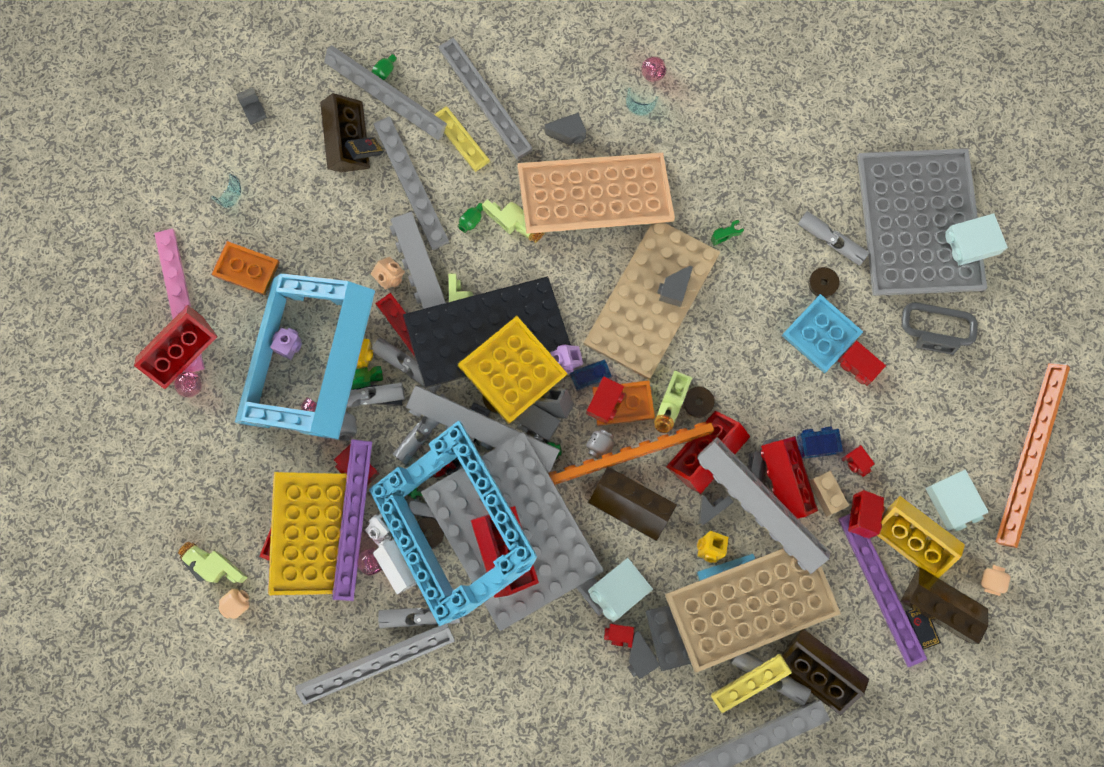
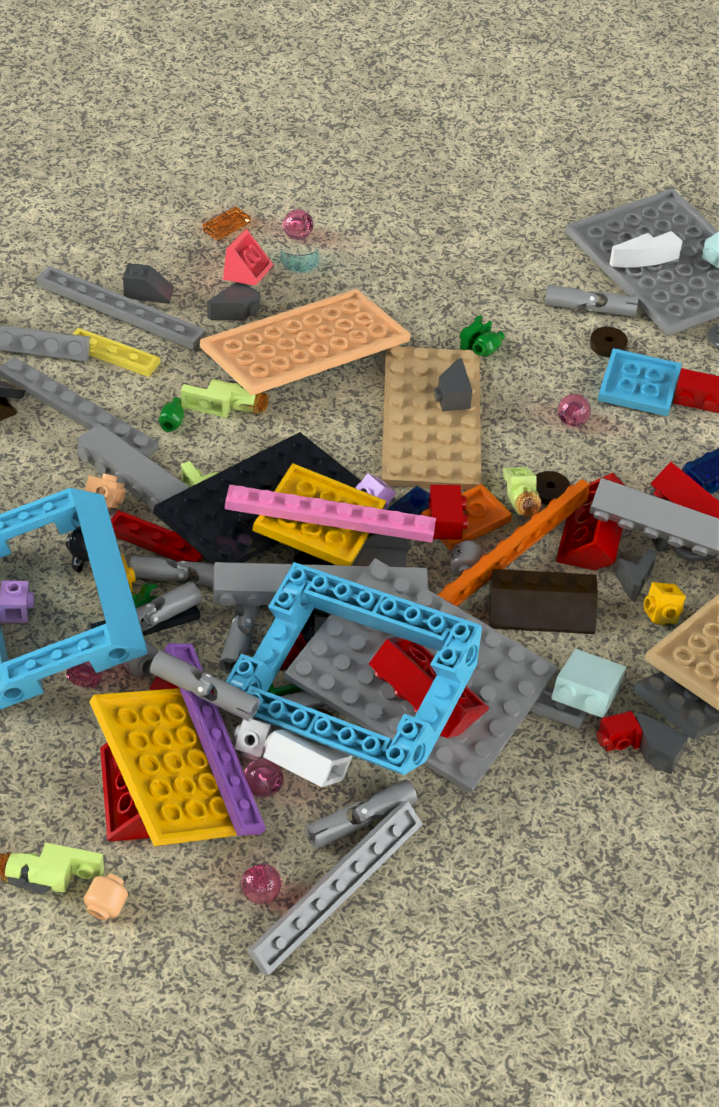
camera: 30 degrees left, 30 degrees down
(329, 640) = (261, 883): none -> clear pink piece
(362, 495) = (193, 679): none -> light grey piece
(513, 84) = (146, 284): none -> dark grey slope
(515, 378) = (330, 513): none -> bright pink plate
(592, 96) = (246, 260): none -> coral slope
(605, 42) = (226, 223): none -> clear orange tile
(730, 247) = (488, 343): none -> green plant
(755, 341) = (574, 410): none -> clear pink piece
(902, 211) = (646, 250): none -> white slope

